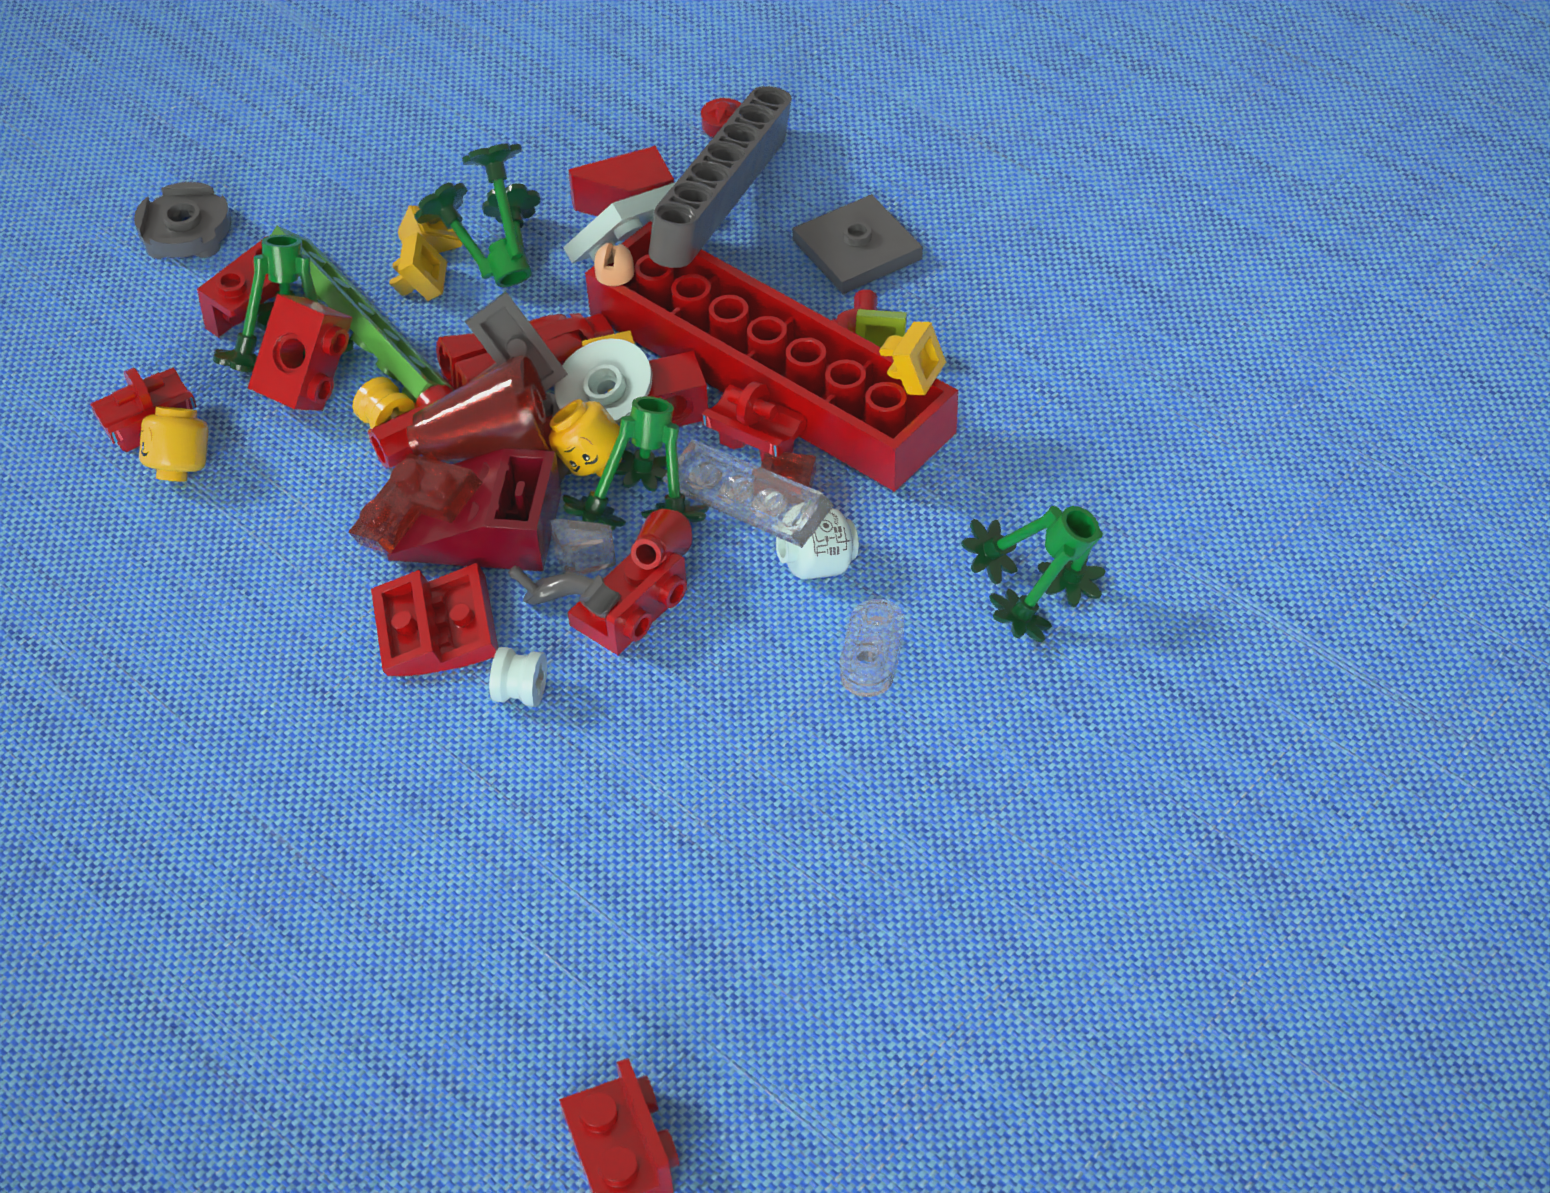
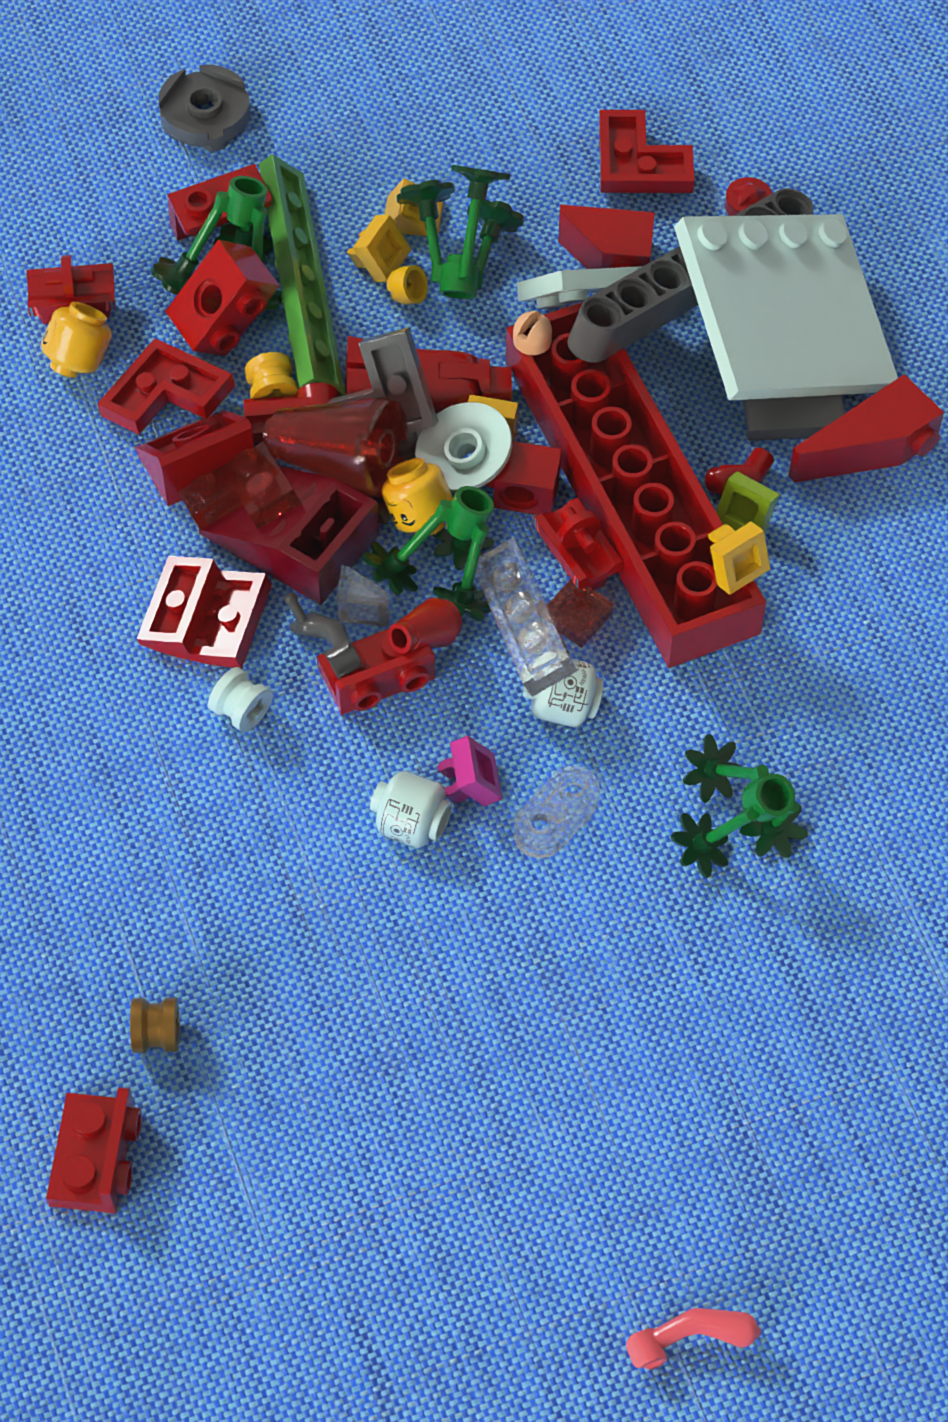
camera: 25 degrees right, 10 degrees up
(275, 443) = (161, 376): none -> red plate
(339, 495) = (194, 450): none -> red slope
(463, 287) = (408, 292): none -> yellow hinge
(609, 127) = (634, 166): none -> red plate
(612, 994) = (155, 1025): none -> pearl gold wheel
(739, 699) = (411, 809): none -> light aqua head
(778, 644) = (474, 772): none -> dark pink tile
(818, 168) = (785, 305): none -> light aqua plate
(950, 244) = (872, 435): none -> red slope
(1326, 999) = (733, 1327): none -> coral piece

